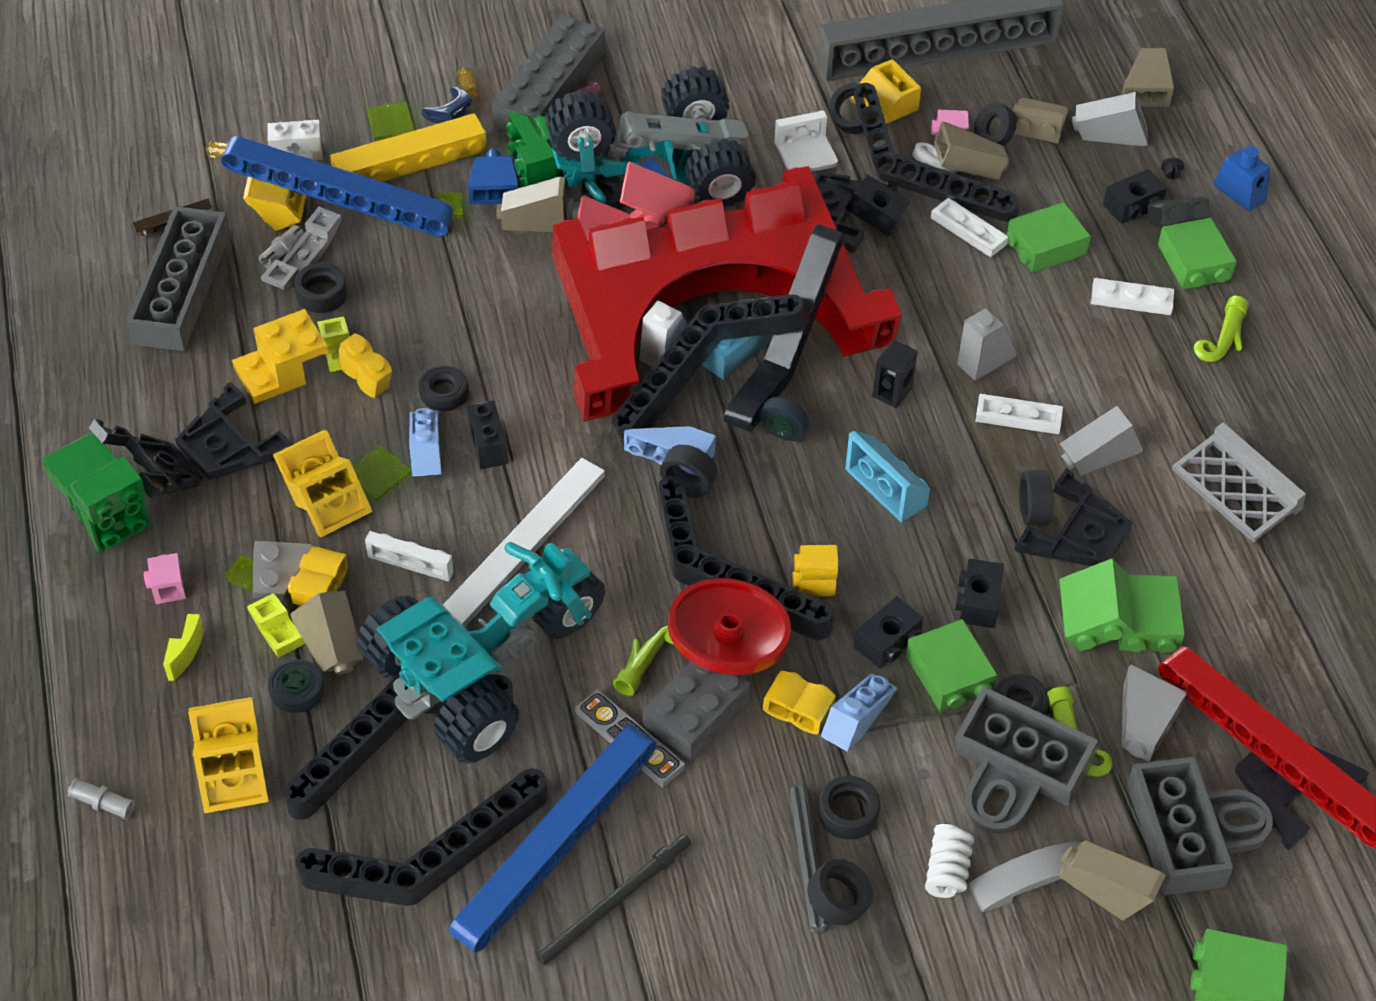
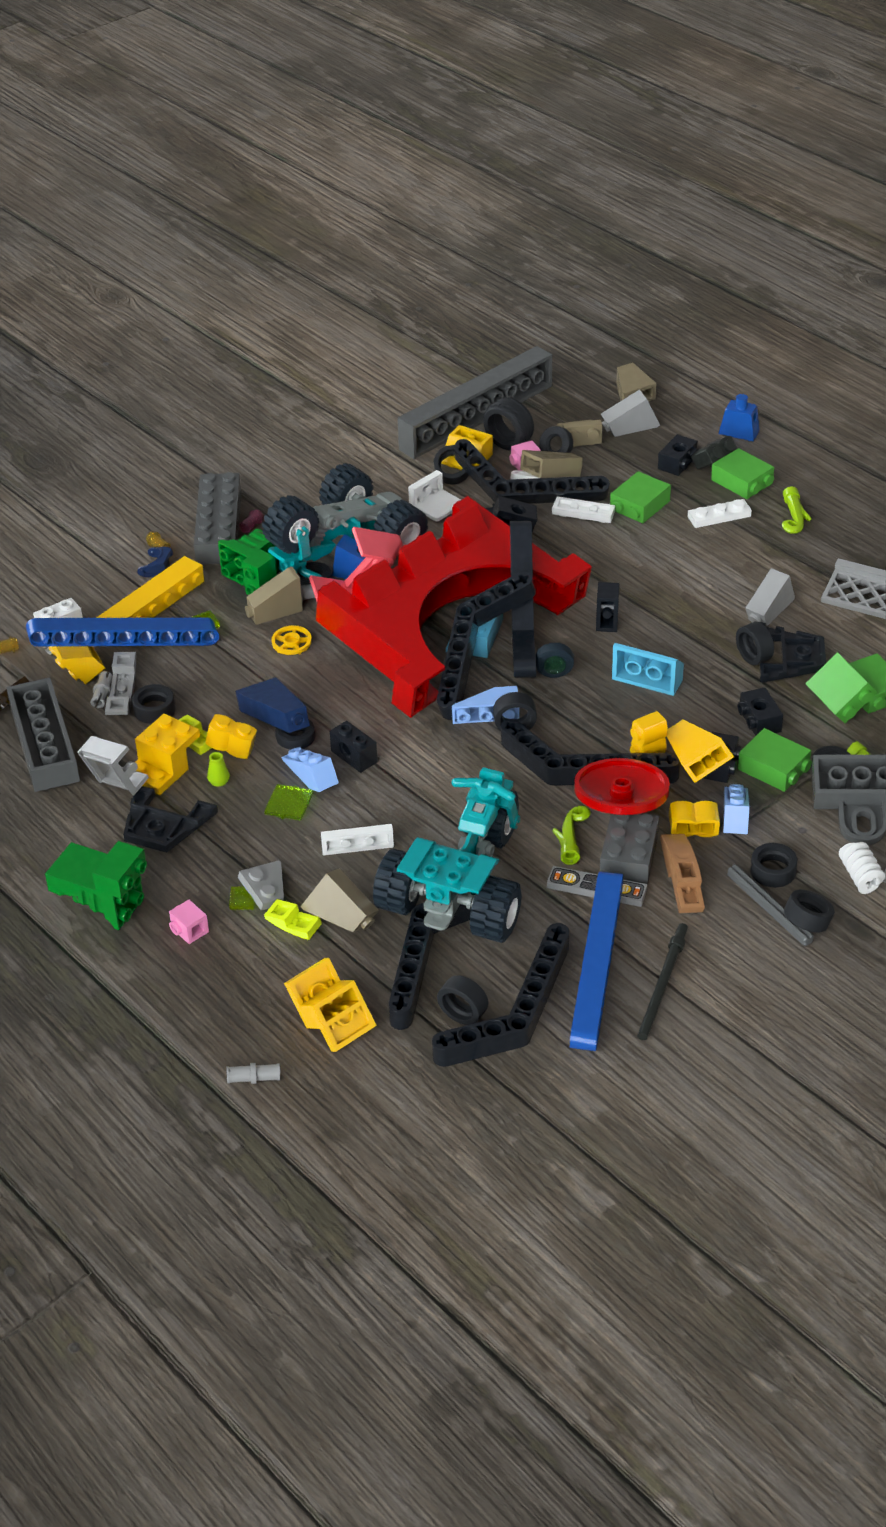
camera: 25 degrees left, 10 degrees down
(165, 465) = (151, 856): black wing -> none
(182, 651) = (236, 957): neon yellow slope -> none
(212, 352) = (102, 760): none -> light grey window
(296, 674) = (341, 947): black wheel -> none
(318, 573) = (301, 876): yellow brick -> none
(322, 483) = (260, 817): yellow bracket -> none
(325, 402) = (217, 770): none -> lime cone
(368, 818) = (470, 992): none -> black tyre
(389, 120) = (116, 586): clear neon green piece -> none
(437, 344) = (273, 704): none -> dark blue slope
(491, 178) = (228, 593): blue torso -> none
(523, 266) = (291, 640): none -> yellow wheel
(530, 534) = (431, 789): white tile -> none
(659, 331) = (434, 633): white slope -> none
(732, 768) = (684, 871): none -> medium nougat slope
(852, 615) = (697, 749): none -> yellow slope
(952, 78) = (516, 414): none -> black tyre
(984, 345) = (653, 569): light grey slope -> none
(1019, 414) = (702, 604): white plate -> none
(1172, 167) = (687, 430): black piece -> none

